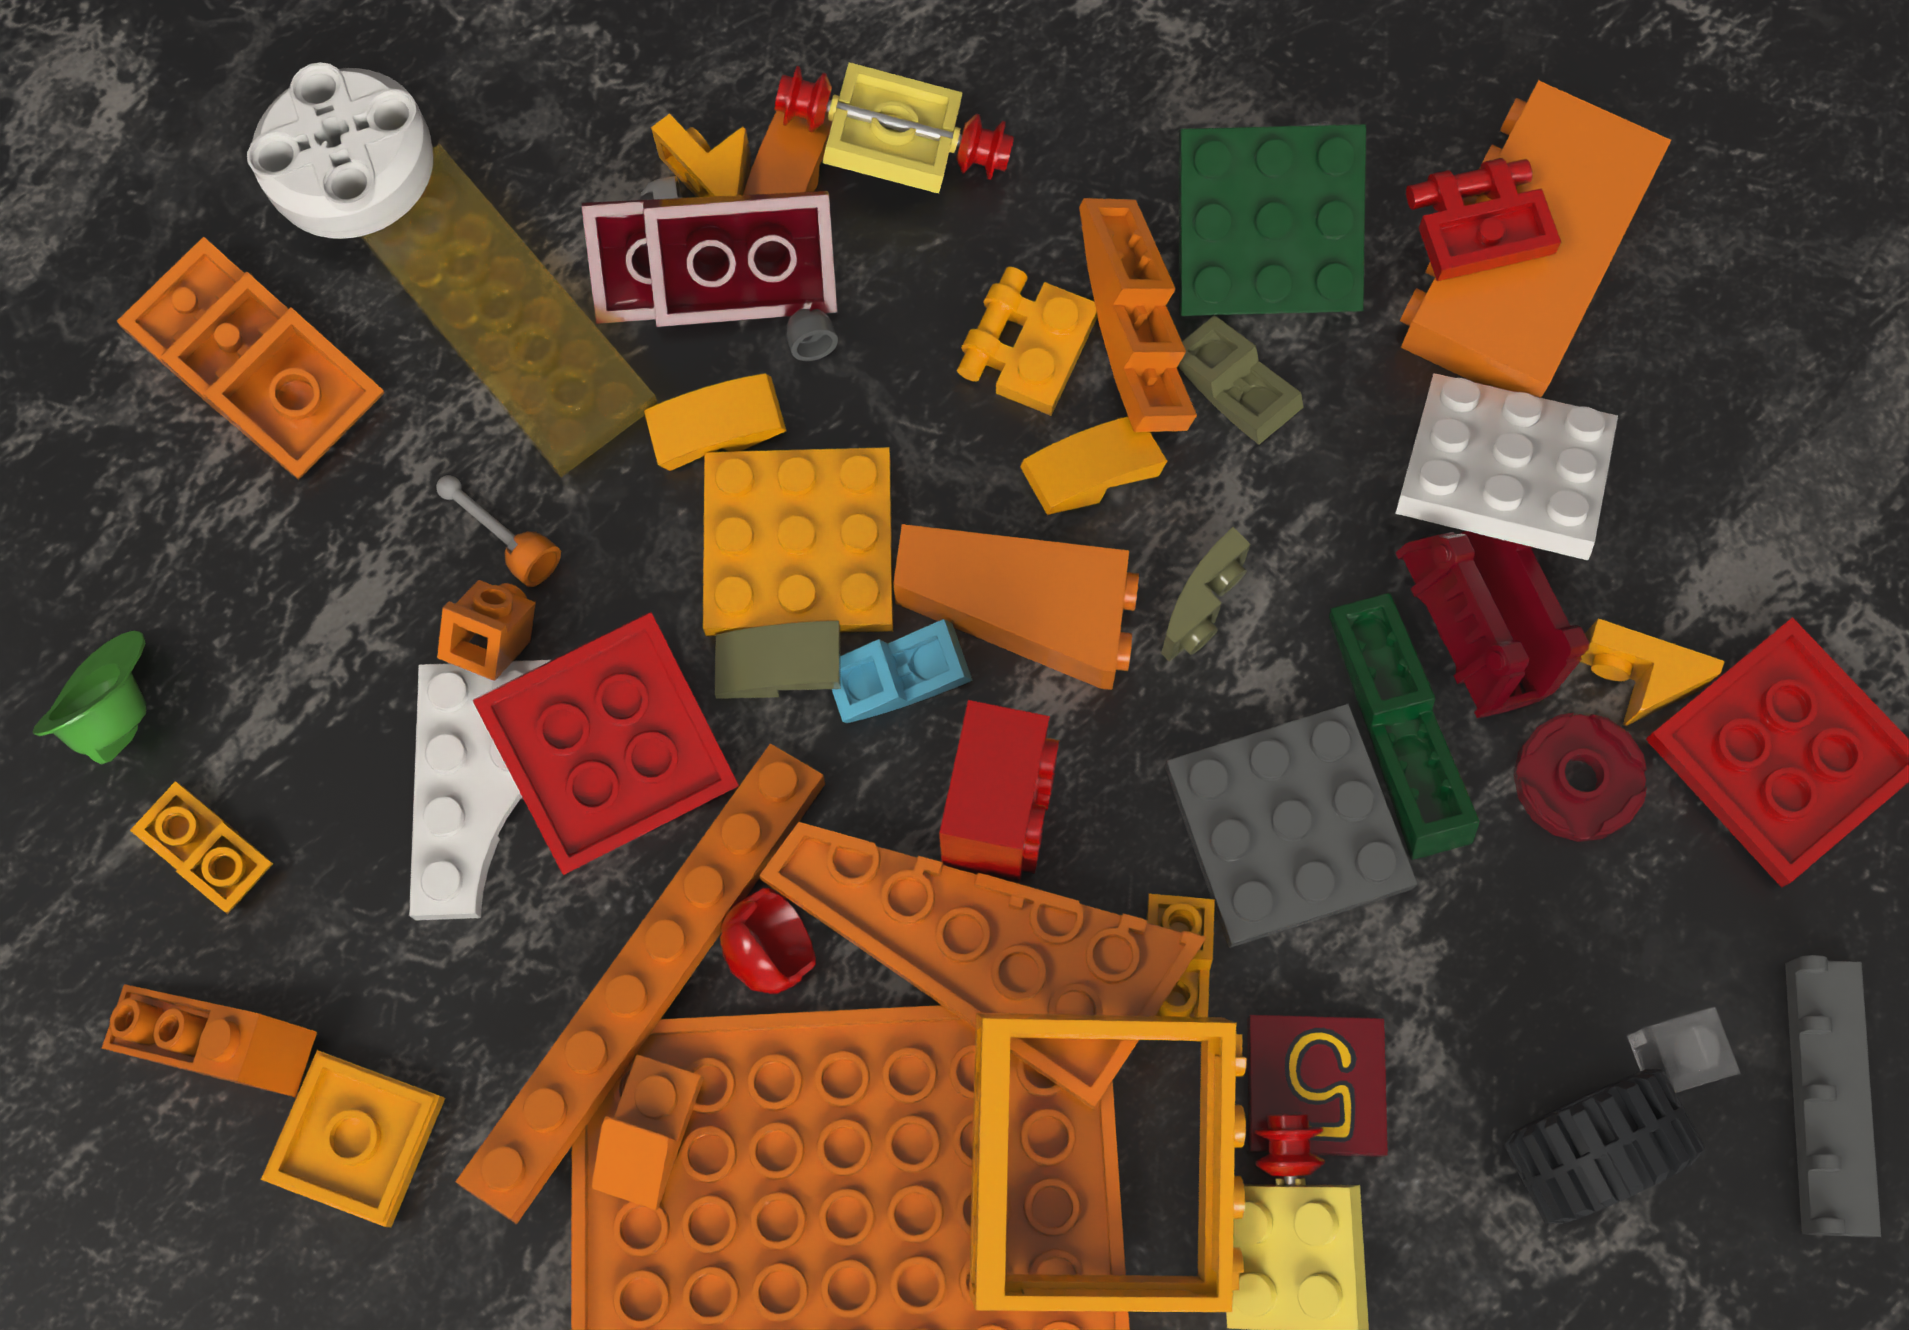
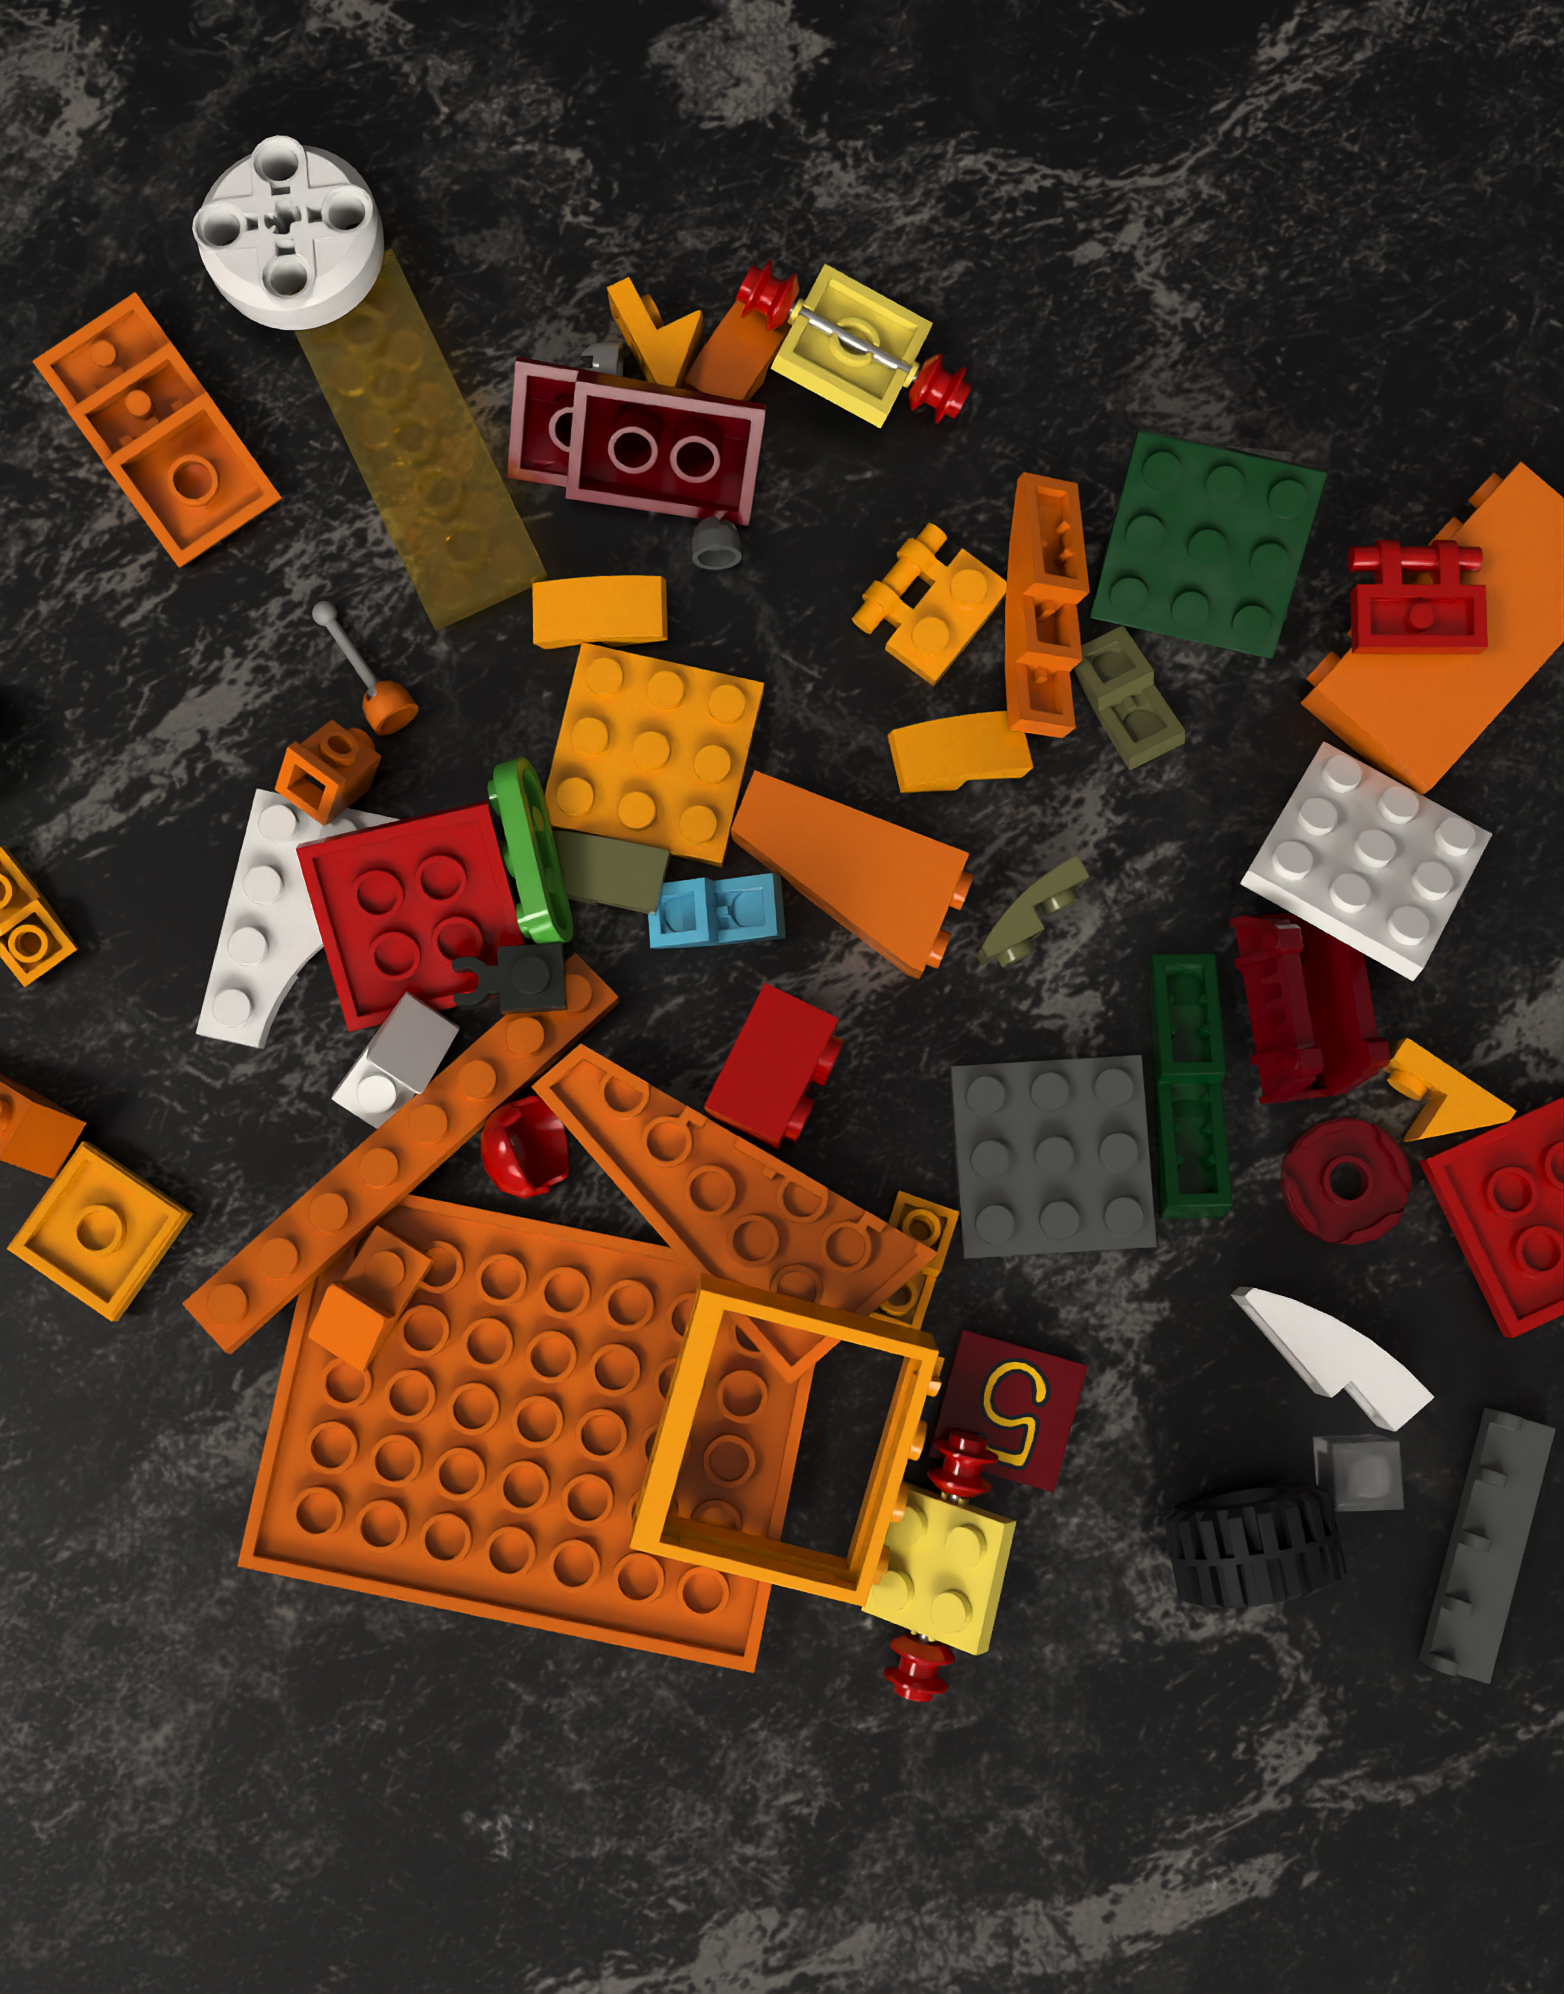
camera: 10 degrees right, 10 degrees up
(617, 891) = (396, 1061): none -> white slope
(704, 656) = (531, 852): none -> bright green plate
(727, 775) = (525, 979): none -> pearl dark grey plate
(1623, 944) = (1336, 1357): none -> white slope

